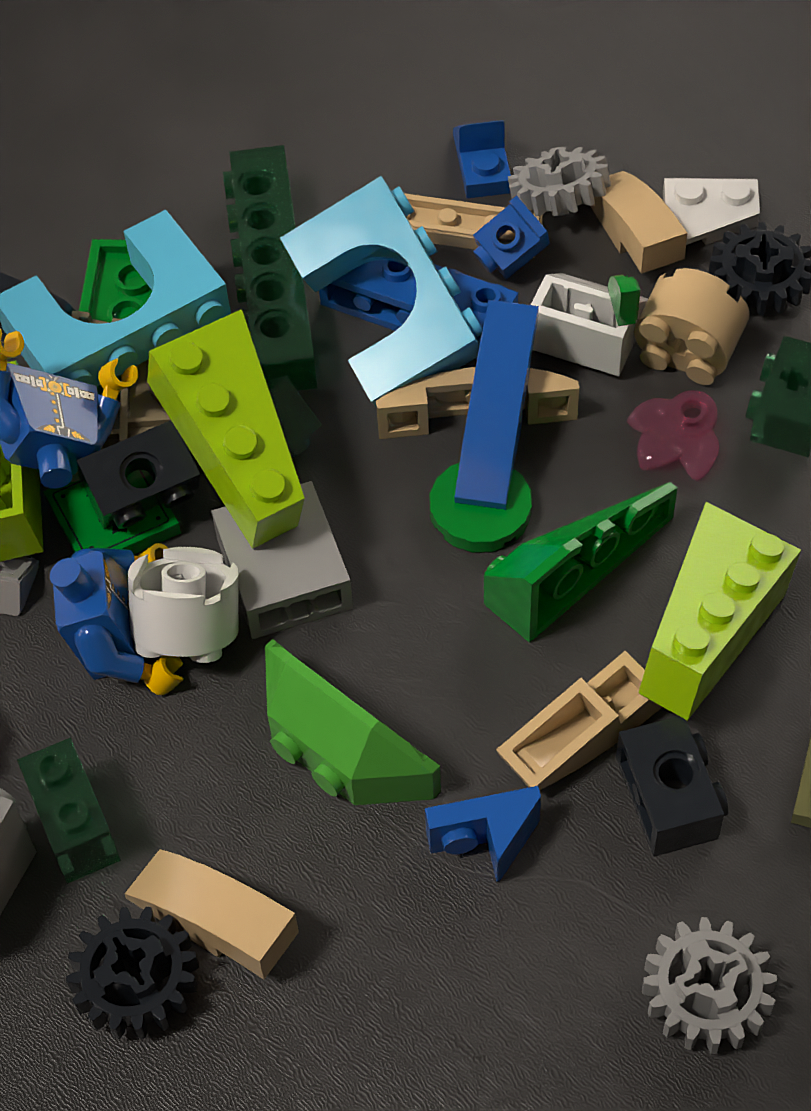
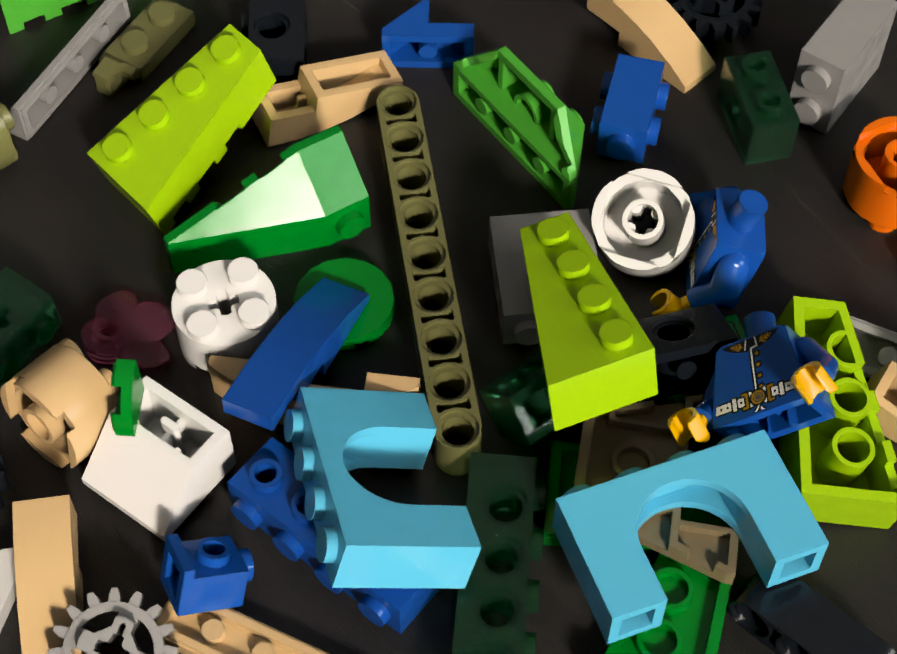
camera: 170 degrees left, 0 degrees up
(219, 768) = (628, 118): none -> blue brick
(378, 477) = (424, 245): none -> olive beam
(583, 443) = (223, 310): none -> white brick

